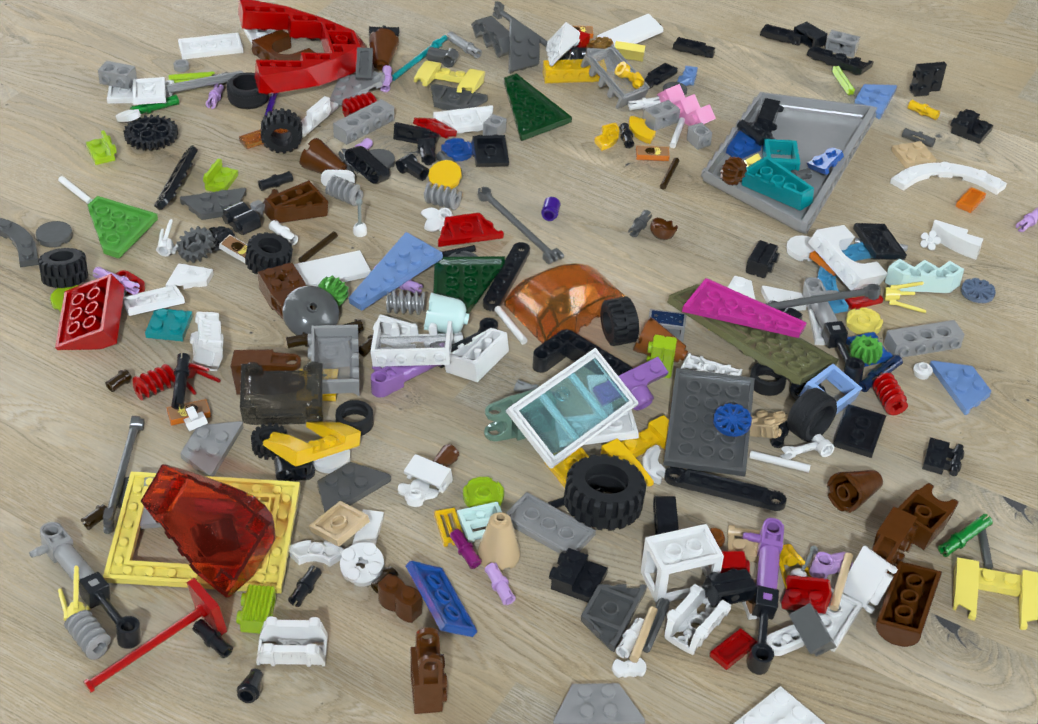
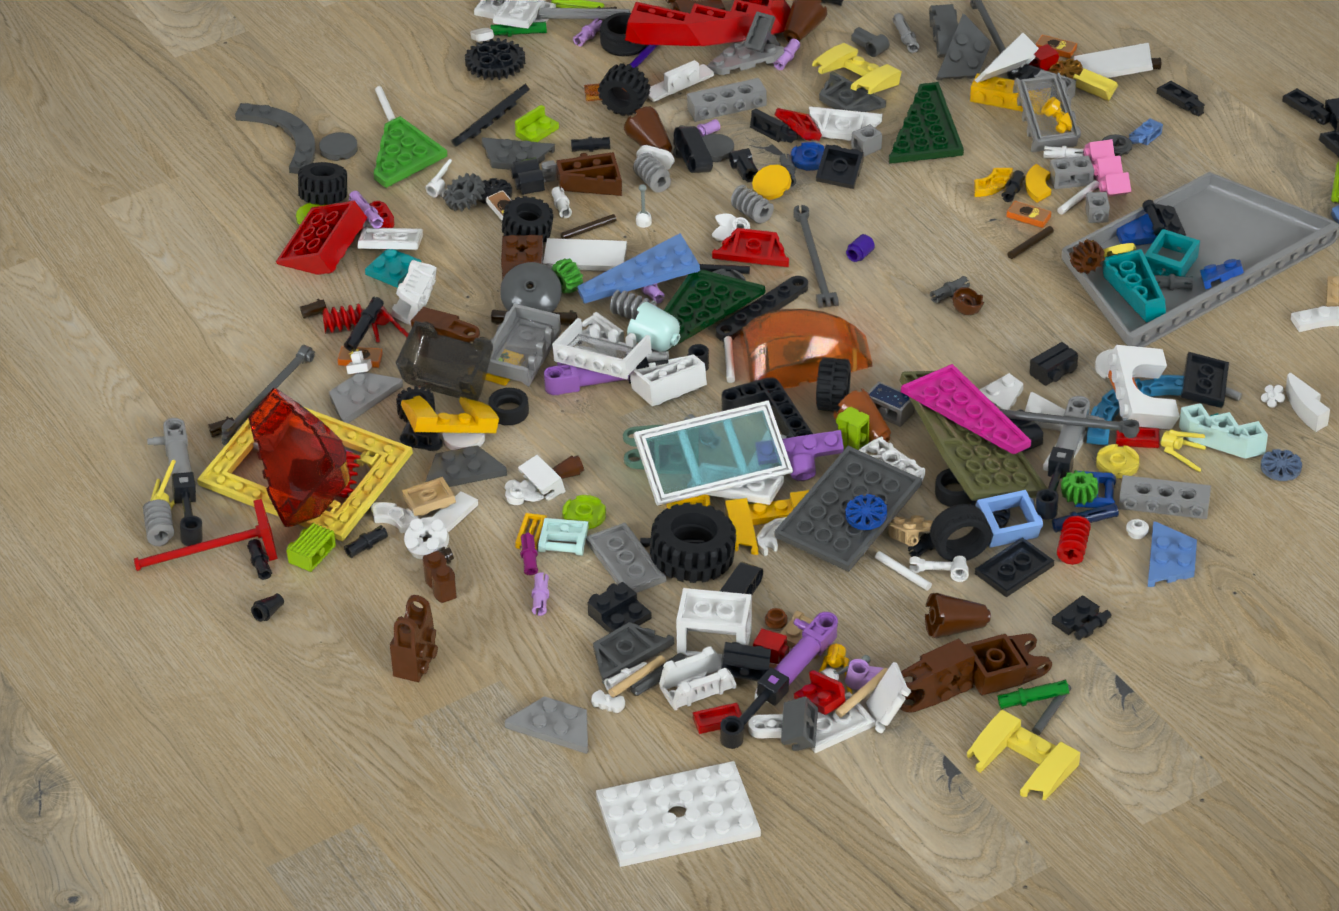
camera: 30 degrees right, 0 degrees up
(101, 149) = (436, 66): lime bracket -> none
(190, 276) = (442, 224): white wing -> none
(293, 642) = (325, 584): white piece -> none
(357, 102) = (726, 78): red piece -> none
(426, 148) = (774, 146): black piece -> none
(437, 43) = (874, 25): teal bar -> none
(441, 599) = (474, 588): blue tile -> none
(499, 543) = (560, 557): tan cone -> none
(660, 74) = (1110, 122): black hinge -> none
(725, 488) = (824, 578): black plate -> none
(769, 113) = (1198, 202): black brick -> none
(907, 604) = (913, 731): reddish brown brick -> none

